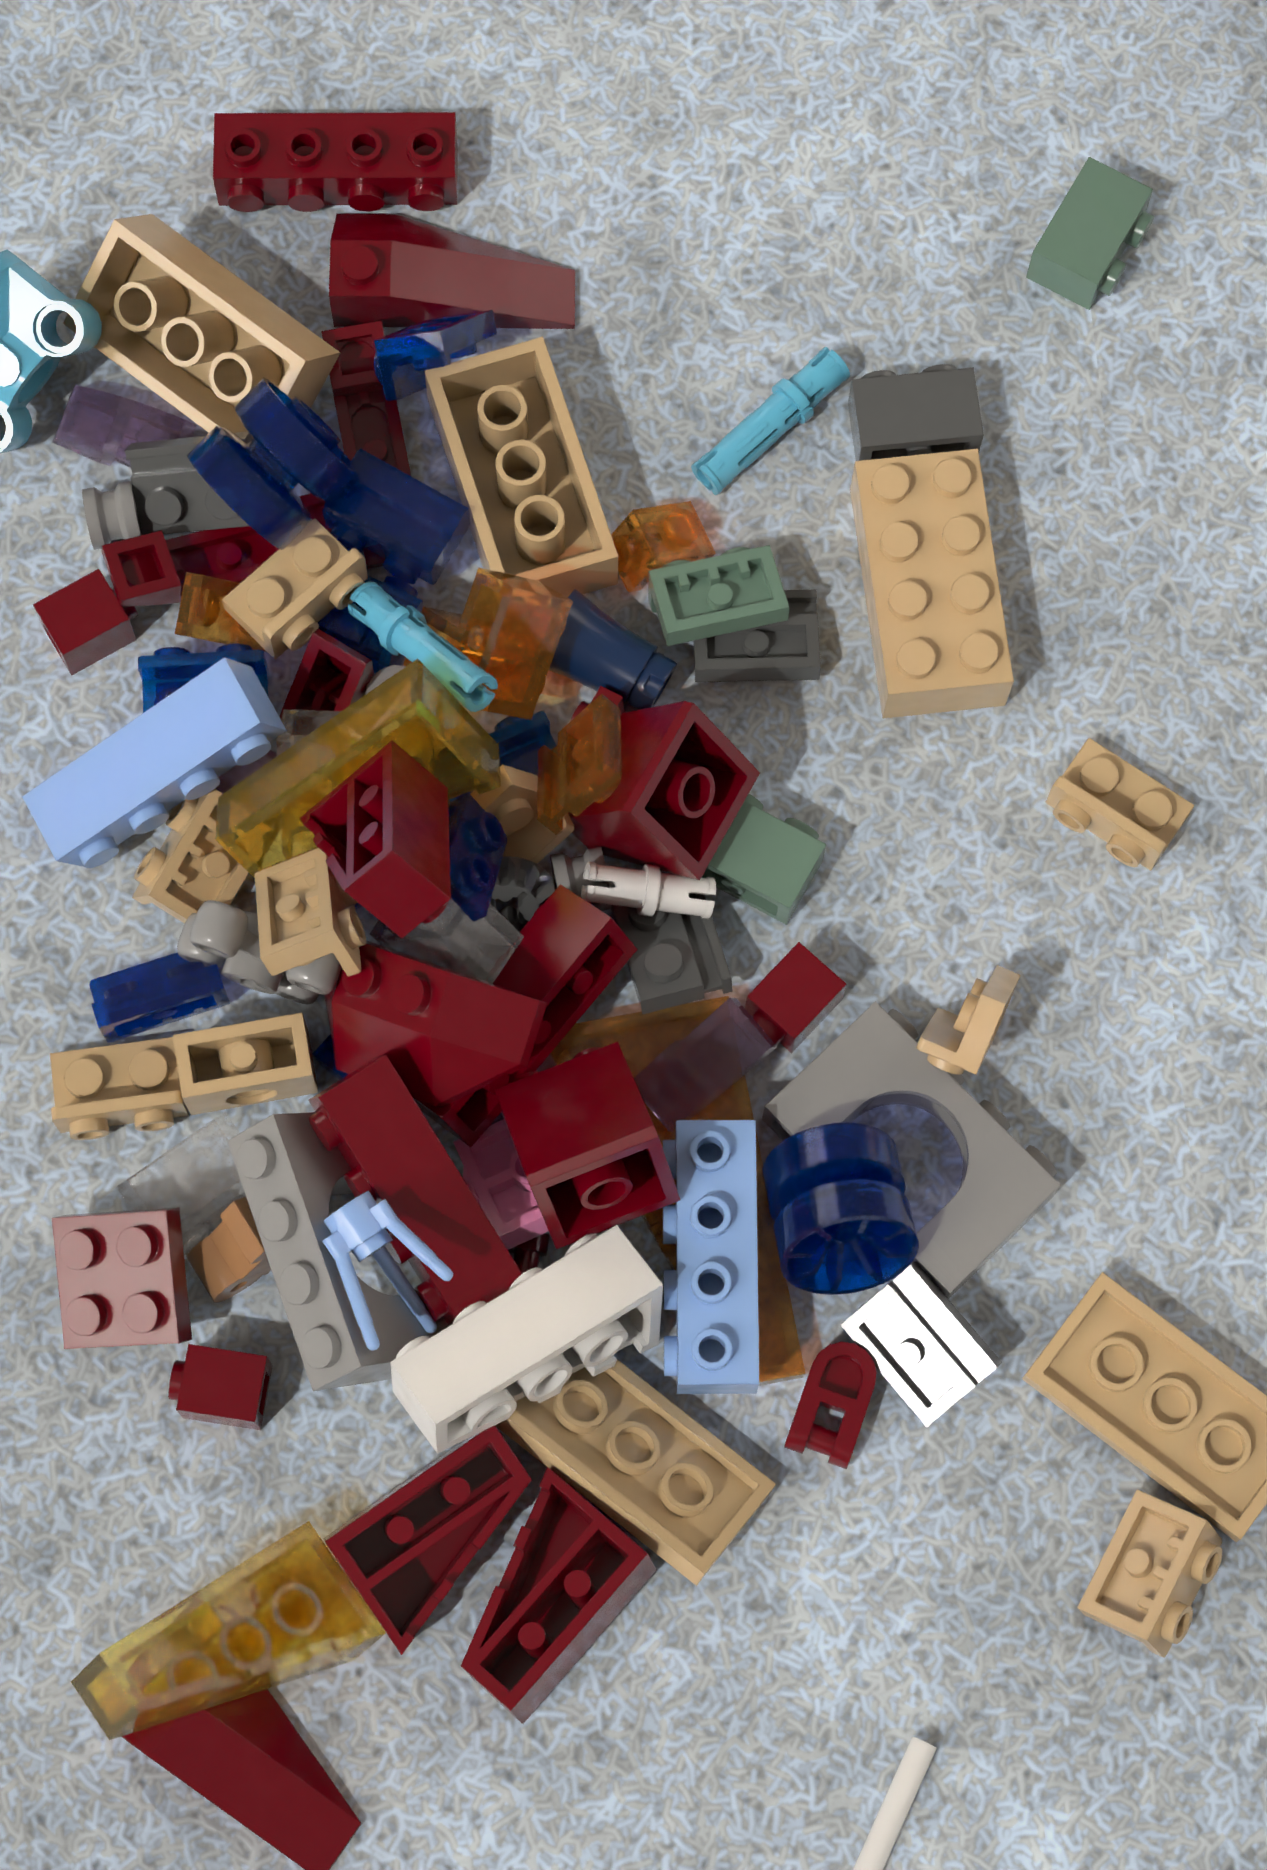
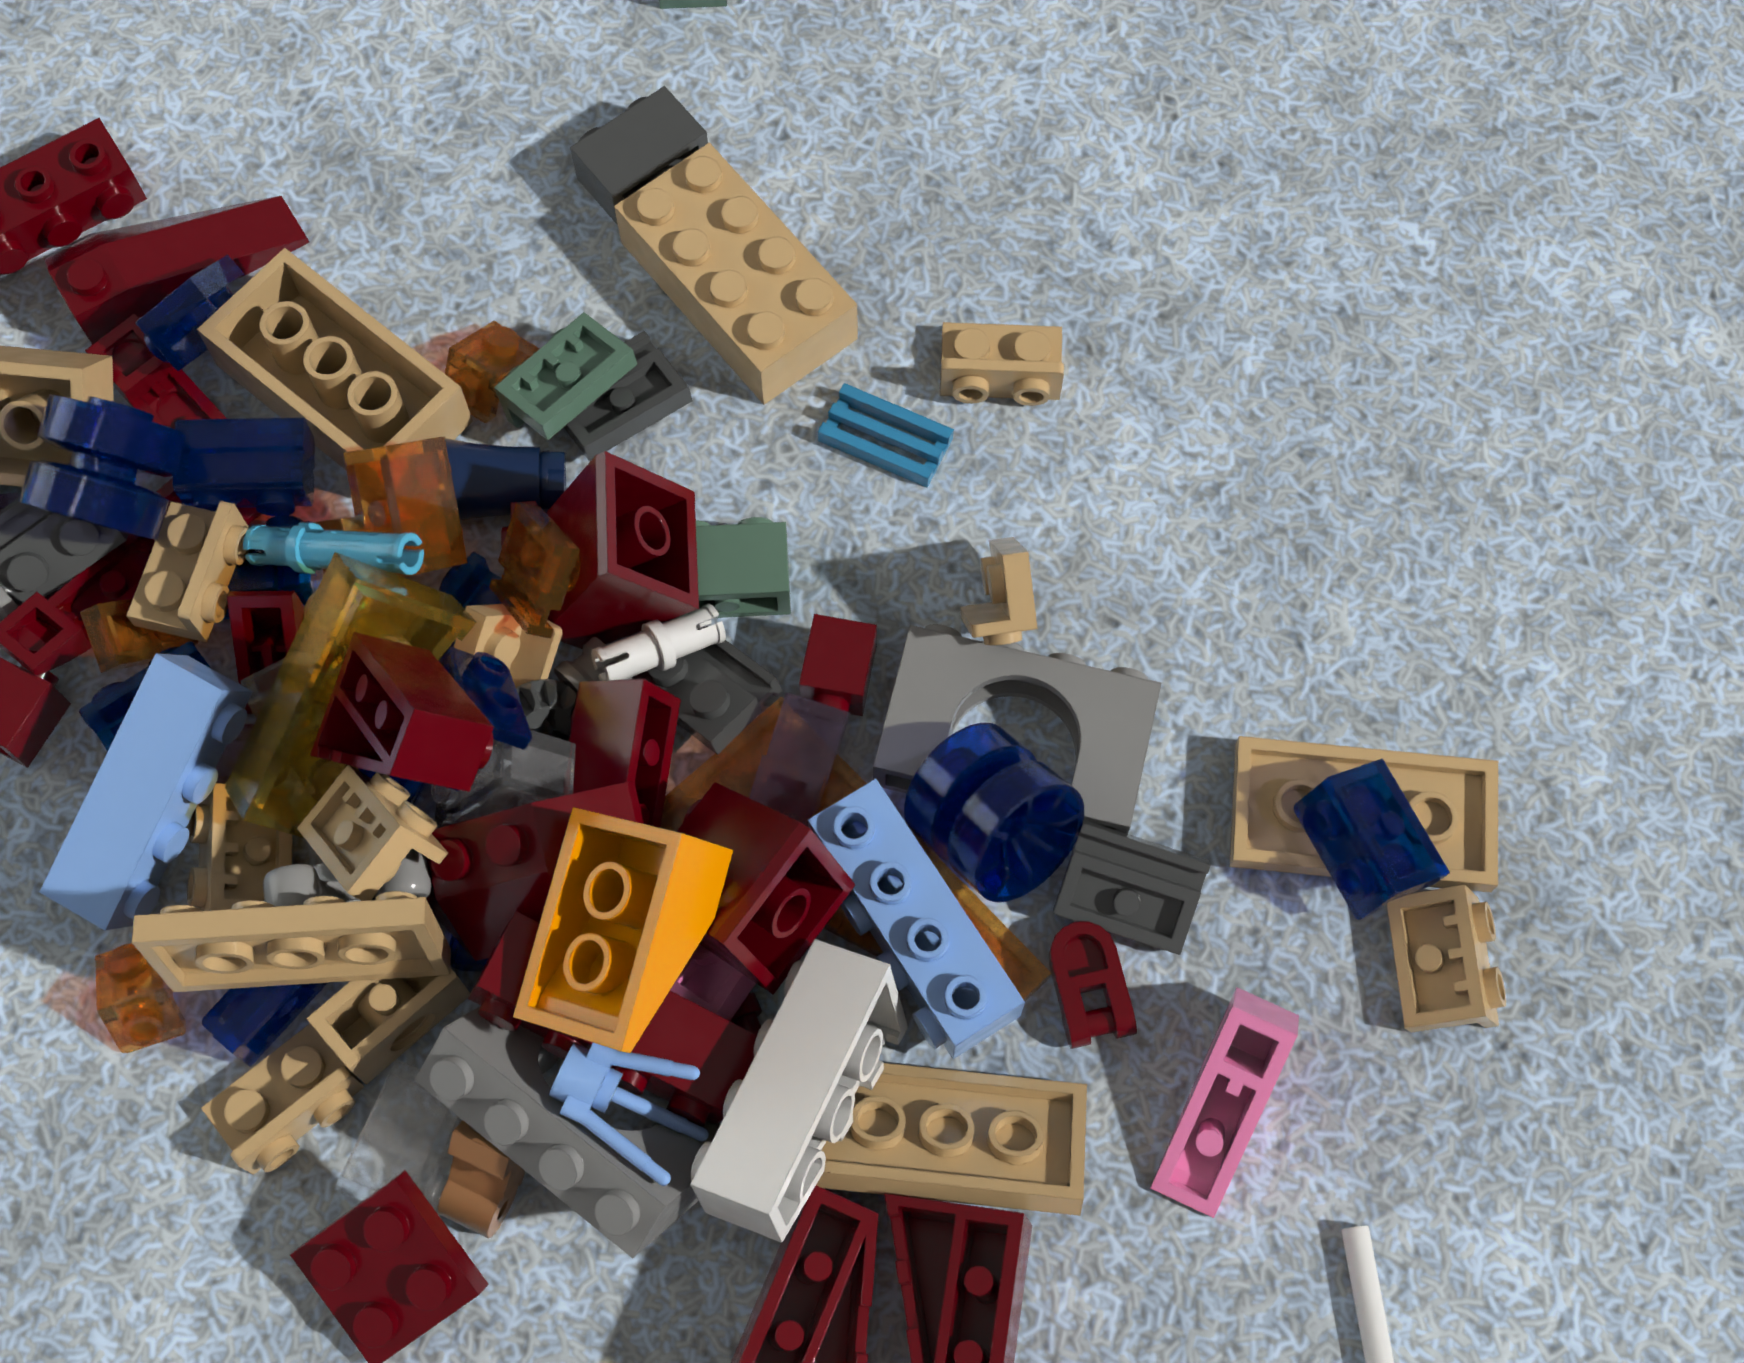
camera: 30 degrees left, 5 degrees down
(53, 927) = (135, 1000): none -> clear orange bracket
(205, 978) = (293, 943): none -> tan plate
(221, 1386) = (541, 1310): dark red brick -> none
(457, 1120) = (618, 927): none -> light orange slope
(788, 405) = (529, 201): medium azure pin -> none
(883, 1570) = (1226, 1101): none -> bright pink slope
(943, 768) = (895, 415): none -> dark azure tile
(1152, 1429) = (1369, 838): none -> clear blue bracket

